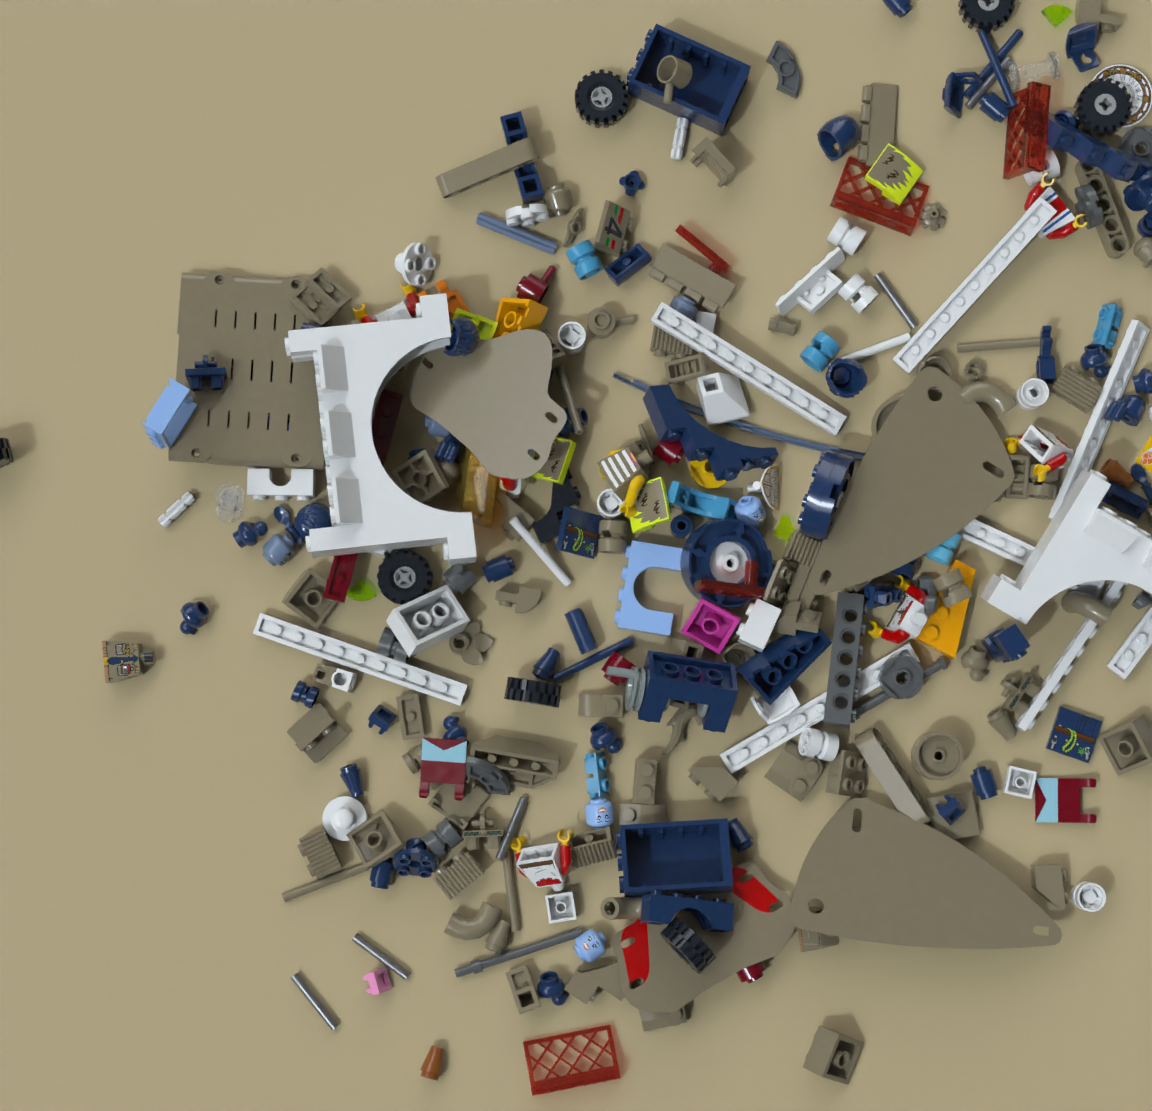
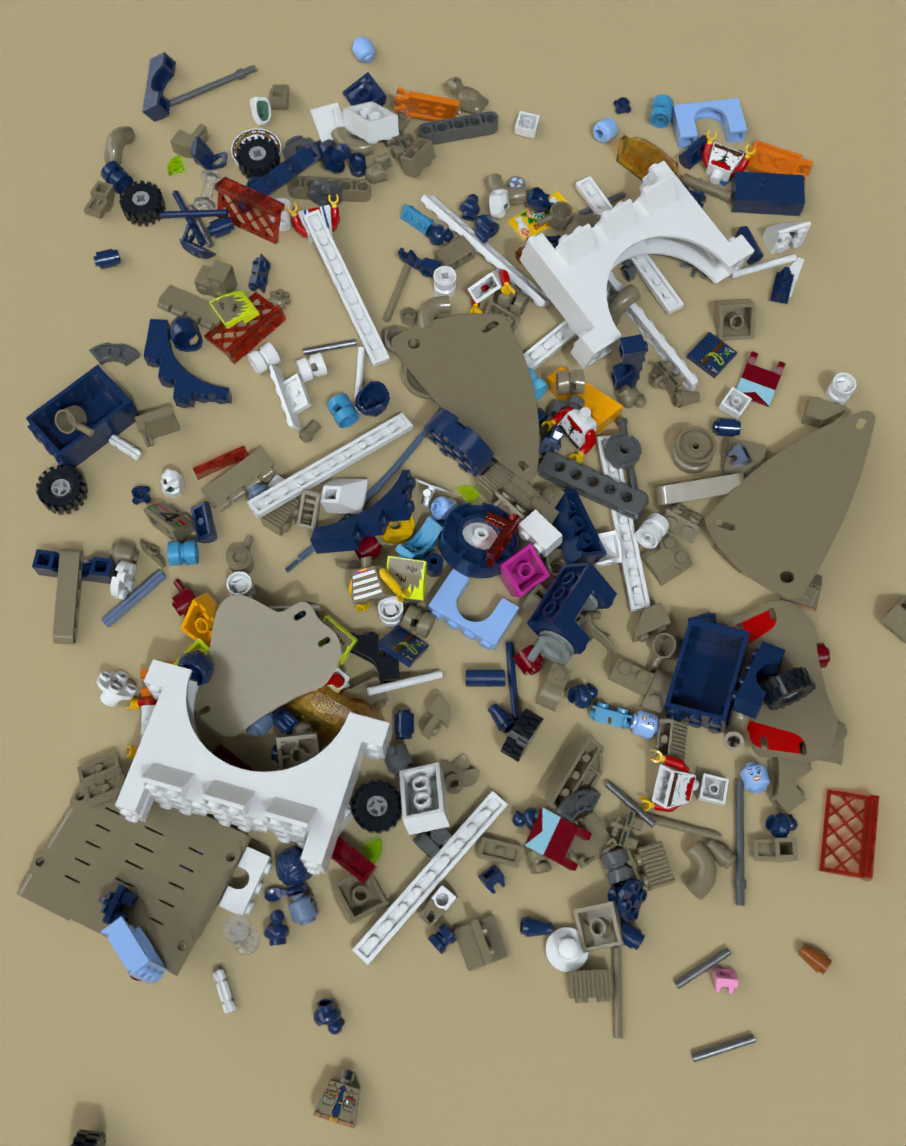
camera: 70 degrees left, 15 degrees down
(656, 210) = (172, 483): none -> white rock
(690, 805) = (665, 647): none -> dark tan piece
(806, 119) = (171, 374): none -> dark blue arch
(919, 137) = (216, 280): none -> dark tan brick
(962, 178) = (261, 268): none -> dark blue hinge

